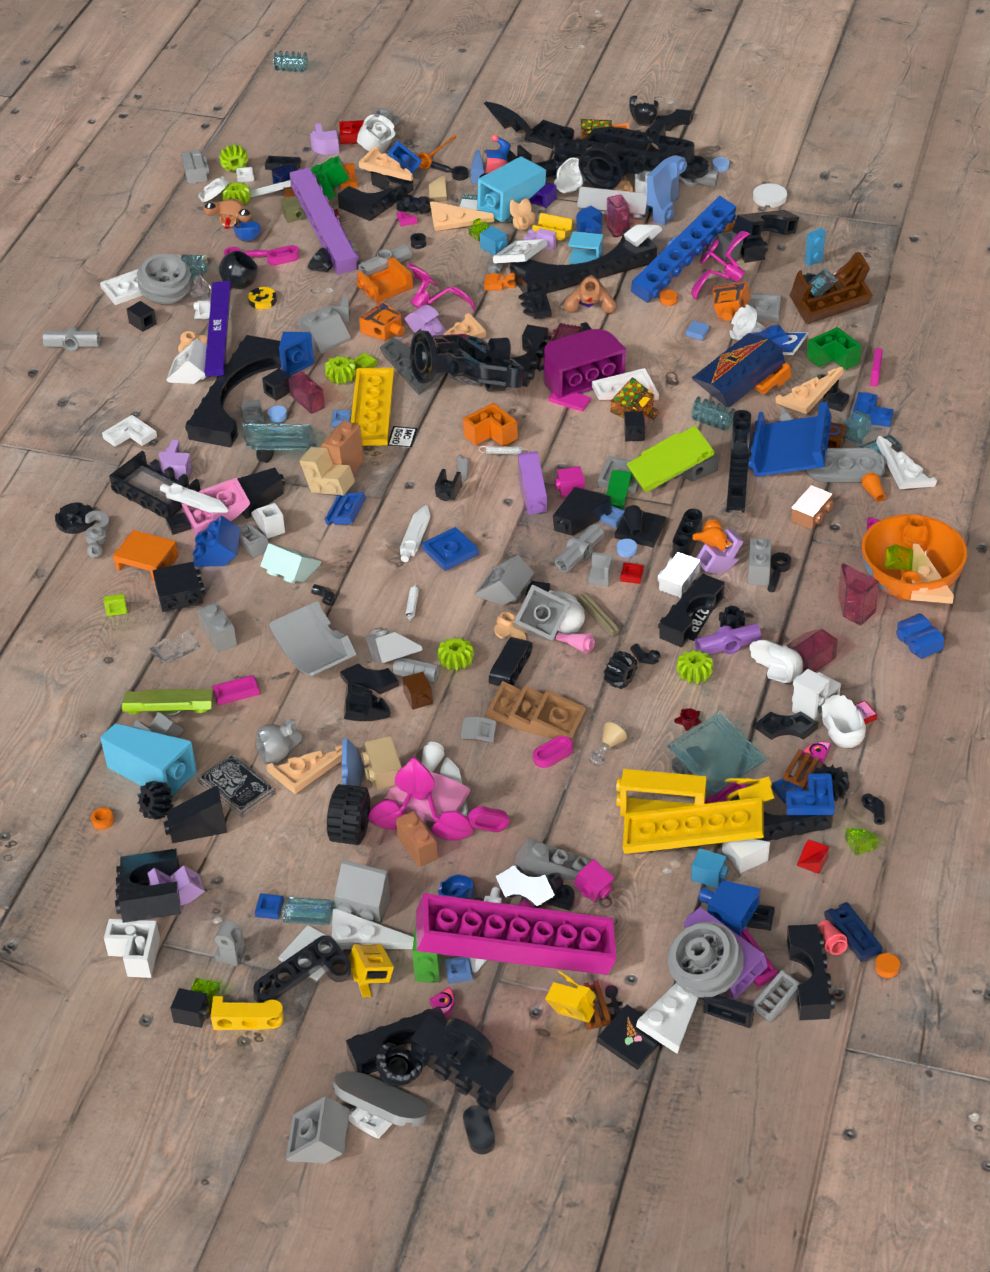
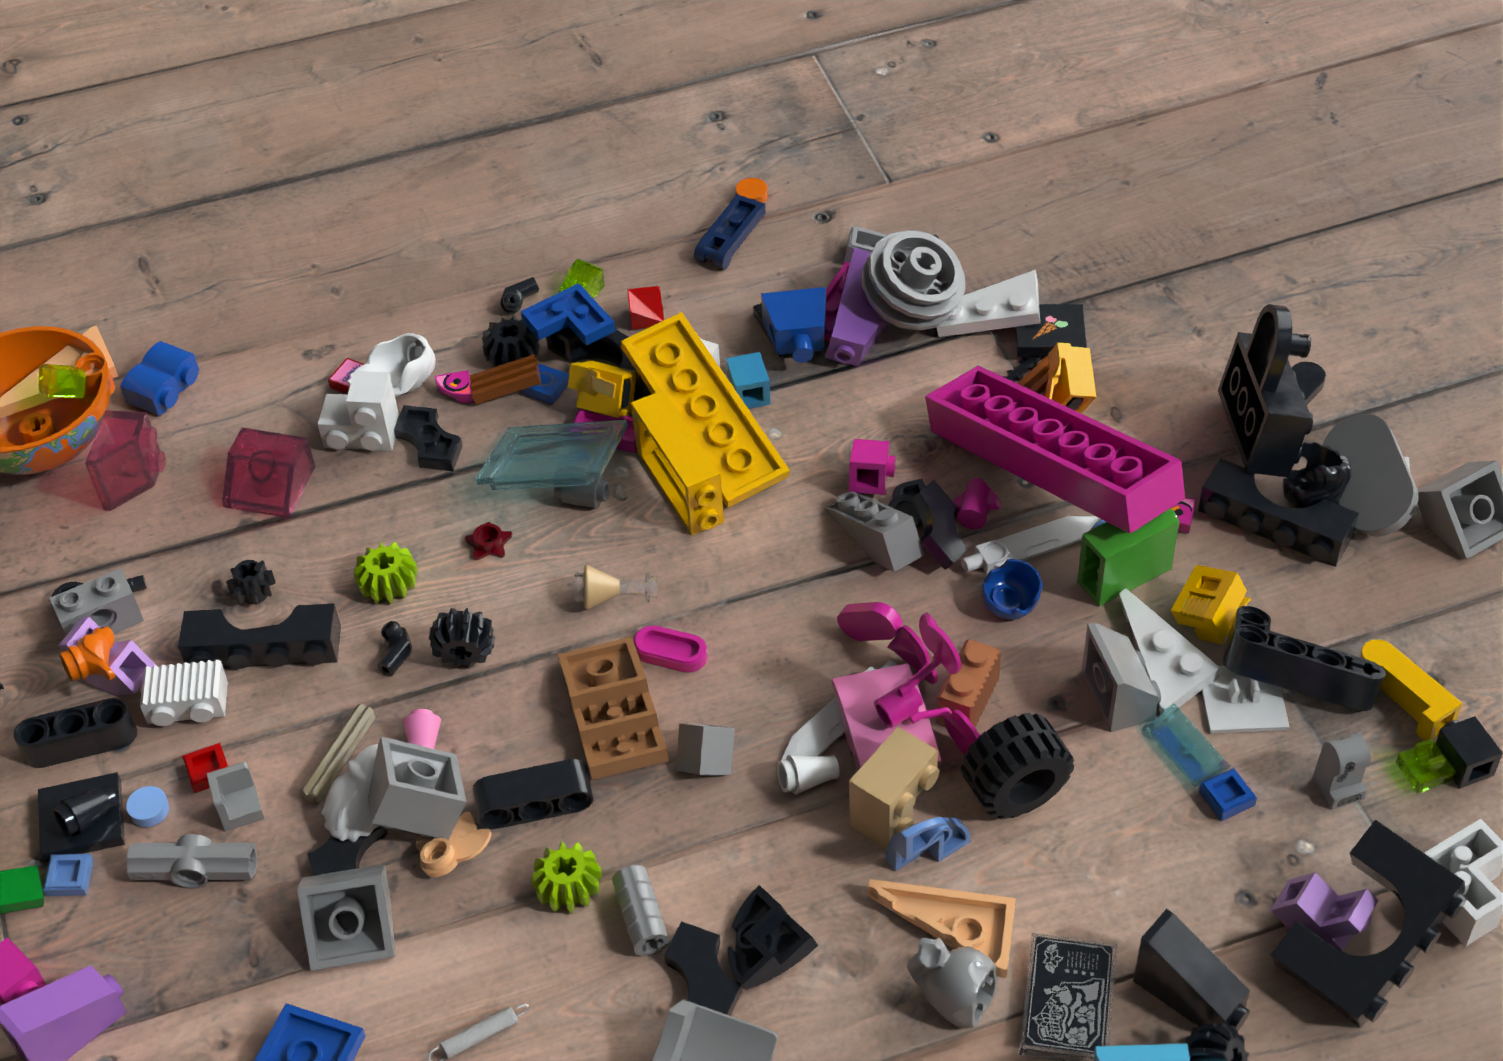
camera: 125 degrees left, 5 degrees up
(389, 645) = (629, 956): slope -> none
(417, 690) = (686, 875): reddish brown brick -> none
(580, 511) = (92, 913): black slope -> none
(728, 639) = (300, 566): medium lavender piece -> none
(782, 661) = (320, 477): white hair -> none
(813, 995) = (789, 250): black arch -> none
(834, 940) = (757, 239): coral cone -> none

